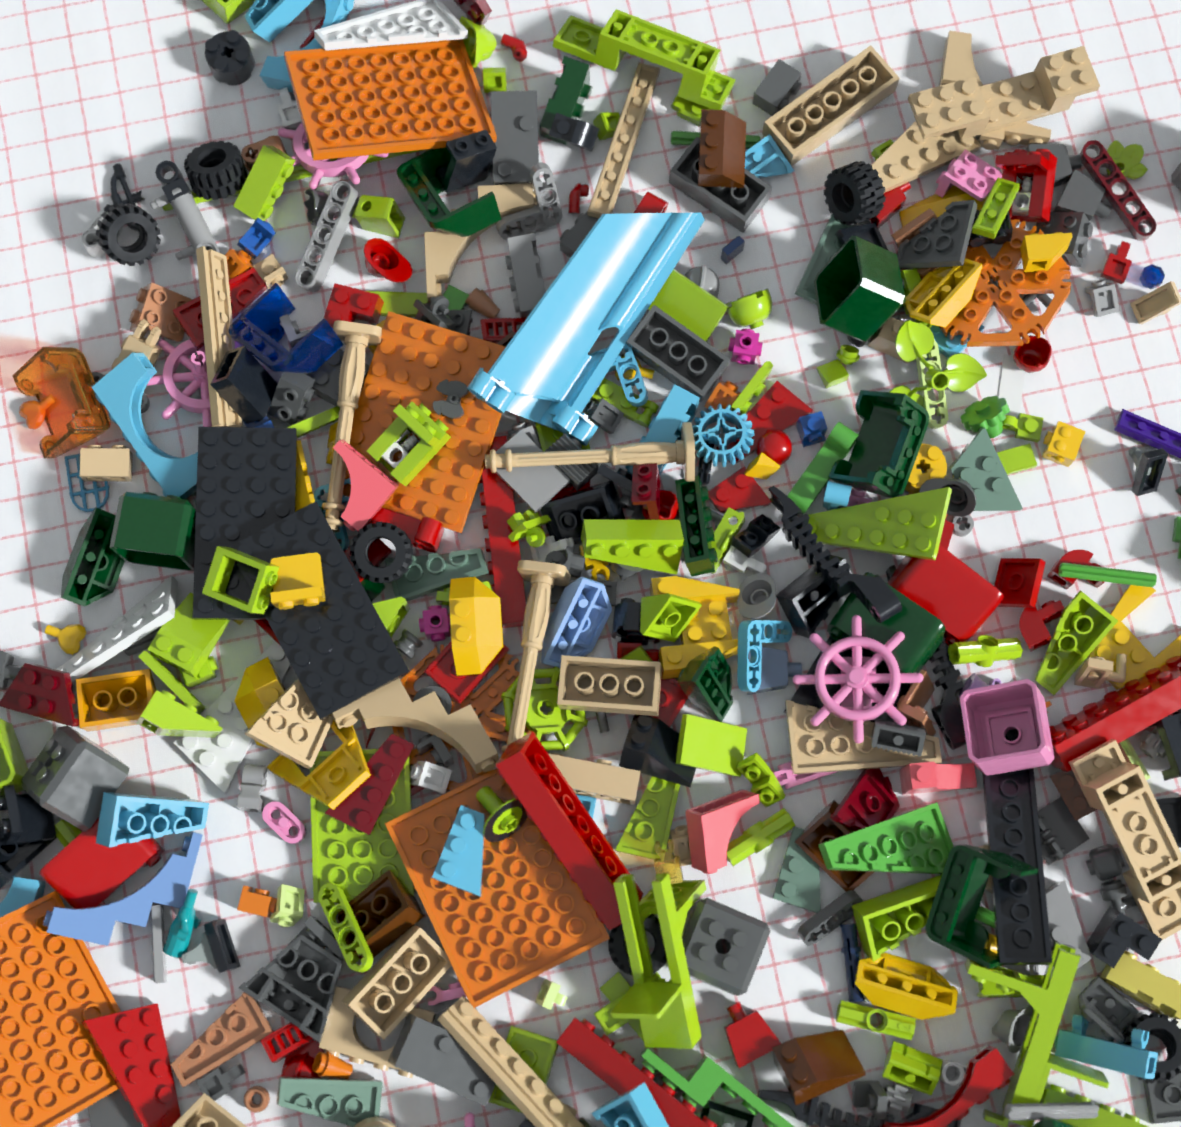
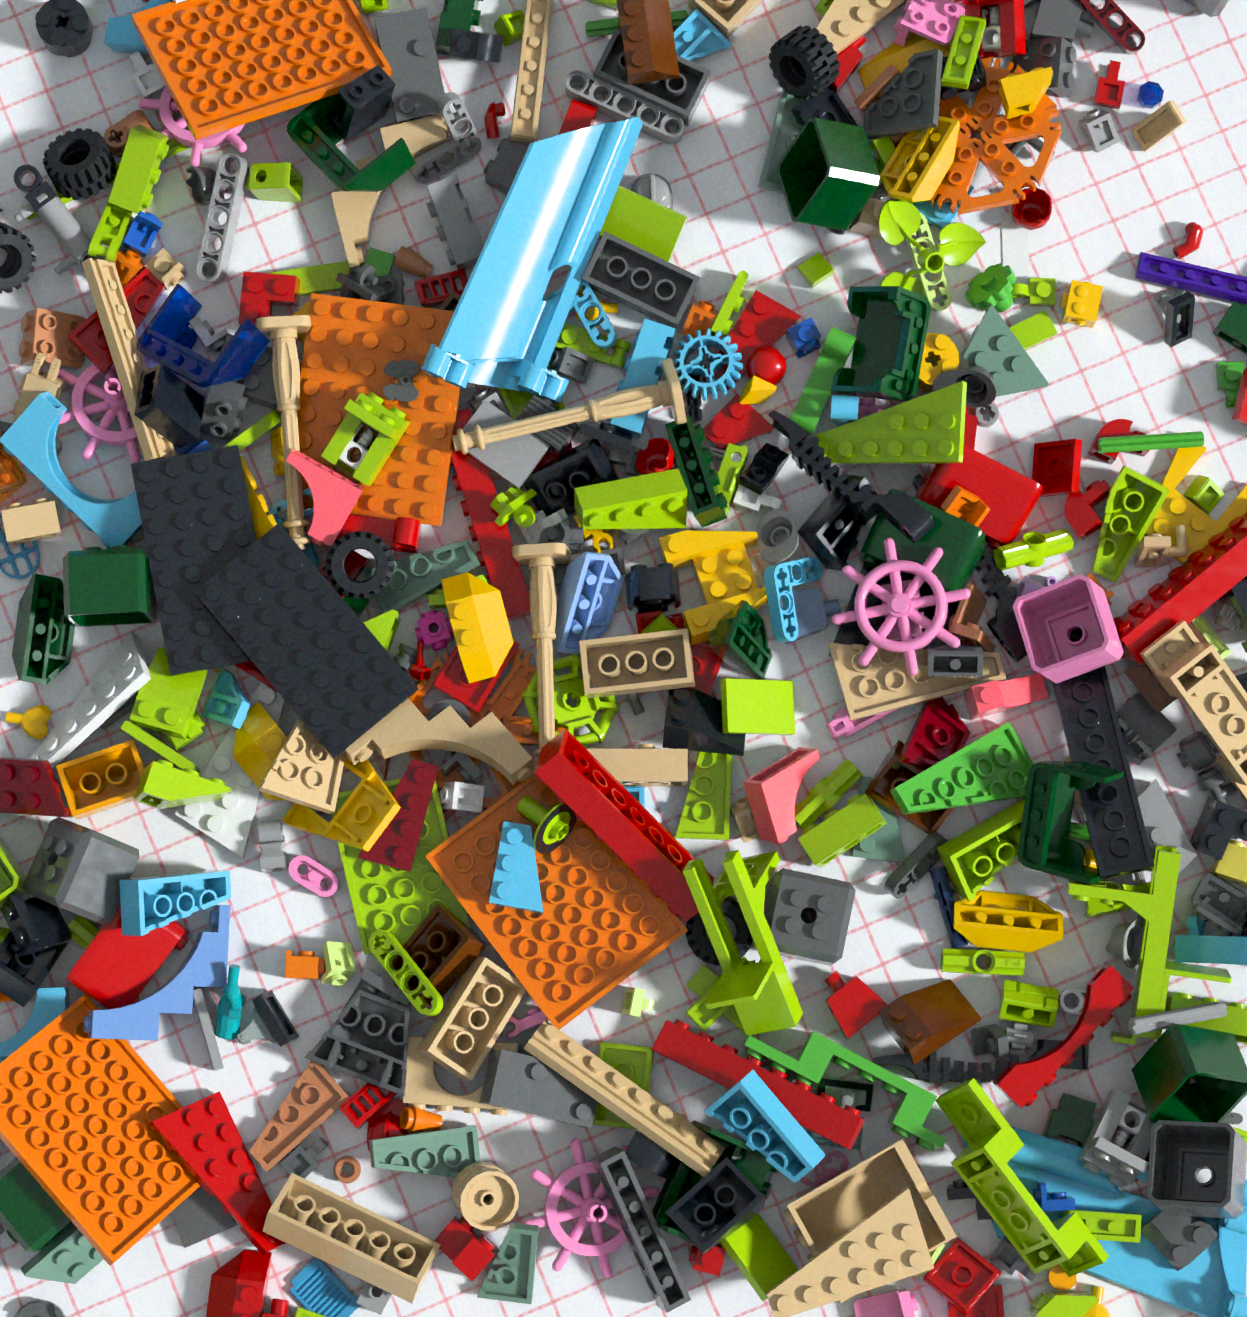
camera: 15 degrees left, 5 degrees up
(220, 574) = (193, 621): lime window -> none
(229, 230) = (110, 232): none -> lime plate
(241, 651) = (227, 701): none -> medium azure wing
(298, 581) = (278, 614): yellow bracket -> none
(385, 261) = (294, 235): red piece -> none
(414, 655) = (418, 670): none -> red hand
(646, 488) = (636, 441): dark red bracket -> none
(666, 615) = (683, 576): lime slope -> none
(668, 863) = (734, 840): clear yellow plate -> none
(687, 196) = (617, 96): none -> light grey beam
(732, 249) = (679, 149): dark blue tile -> none
(745, 346) = (714, 267): dark pink brick -> none
(751, 309) = (712, 214): lime cylinder -> none
(762, 779) = (818, 732): lime slope -> none
(767, 872) = (841, 830): none -> lime brick
(848, 354) = (829, 246): lime plate -> none
(931, 599) = (965, 506): none -> orange bracket
(1146, 630) = (1204, 493): none -> lime slope
(1171, 406) = (1194, 235): none -> red arm

